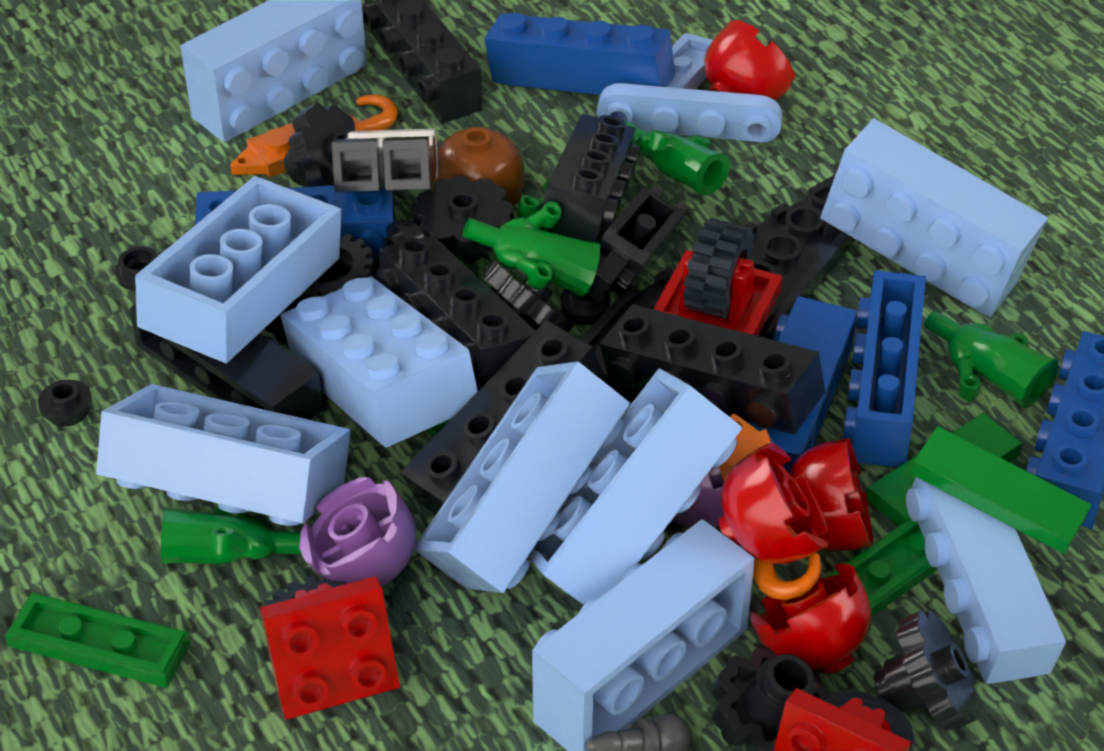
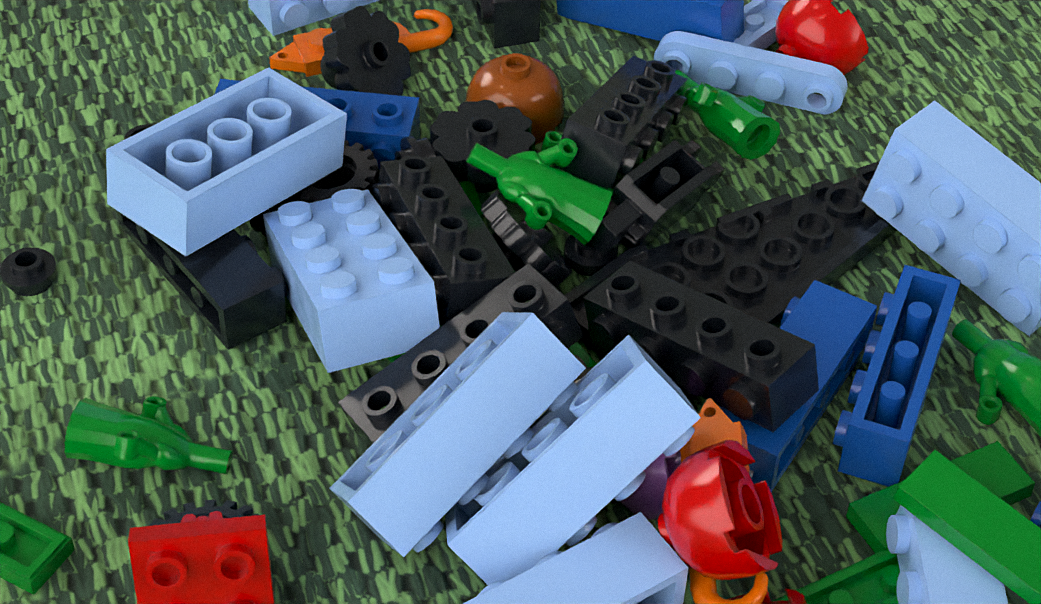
camera: 10 degrees right, 0 degrees up
(222, 453) = (160, 351): light blue brick -> none
(360, 533) = (276, 465): medium lavender cylinder -> none
(387, 157) = (413, 73): black hips -> none
(719, 281) = (732, 253): plate -> none
(834, 480) = (808, 508): red cylinder -> none

